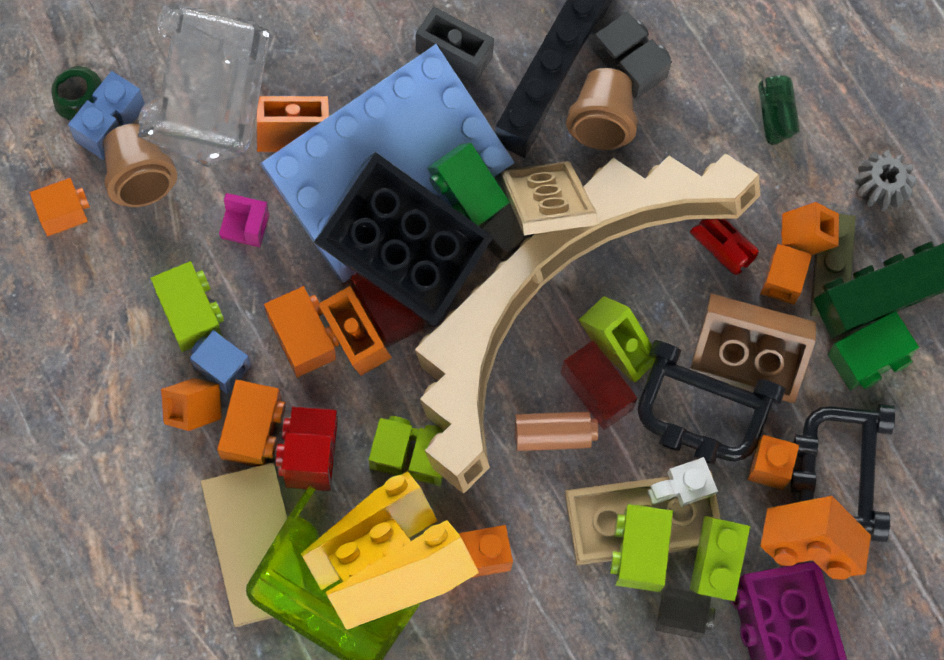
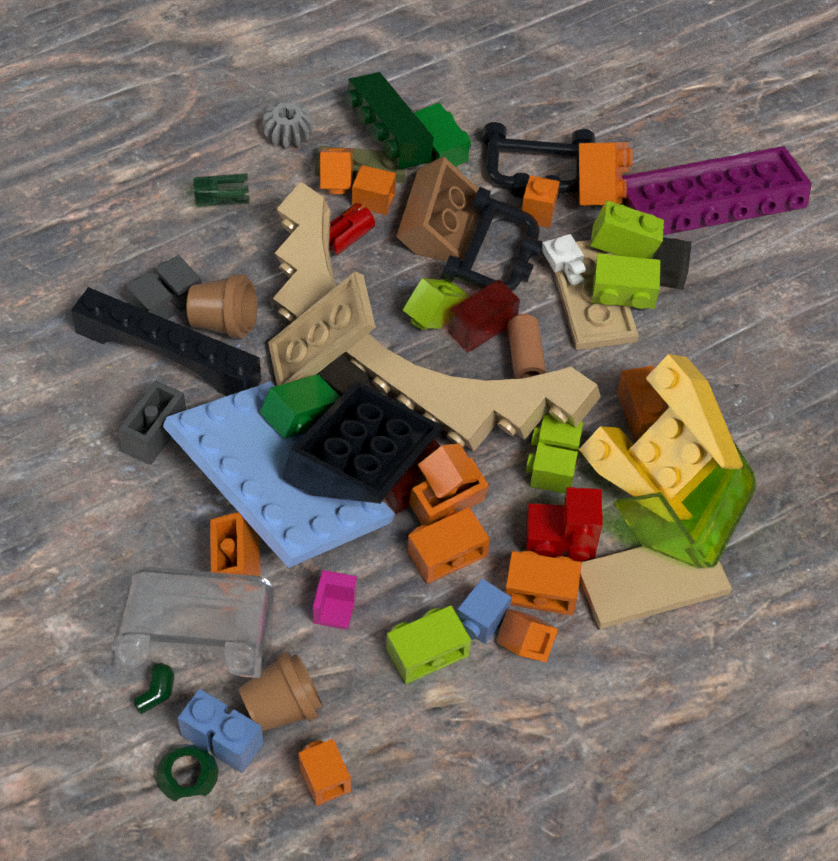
camera: 90 degrees left, 15 degrees down
(153, 59) = (159, 690): none -> dark green arm
(364, 321) = (448, 469): none -> orange panel

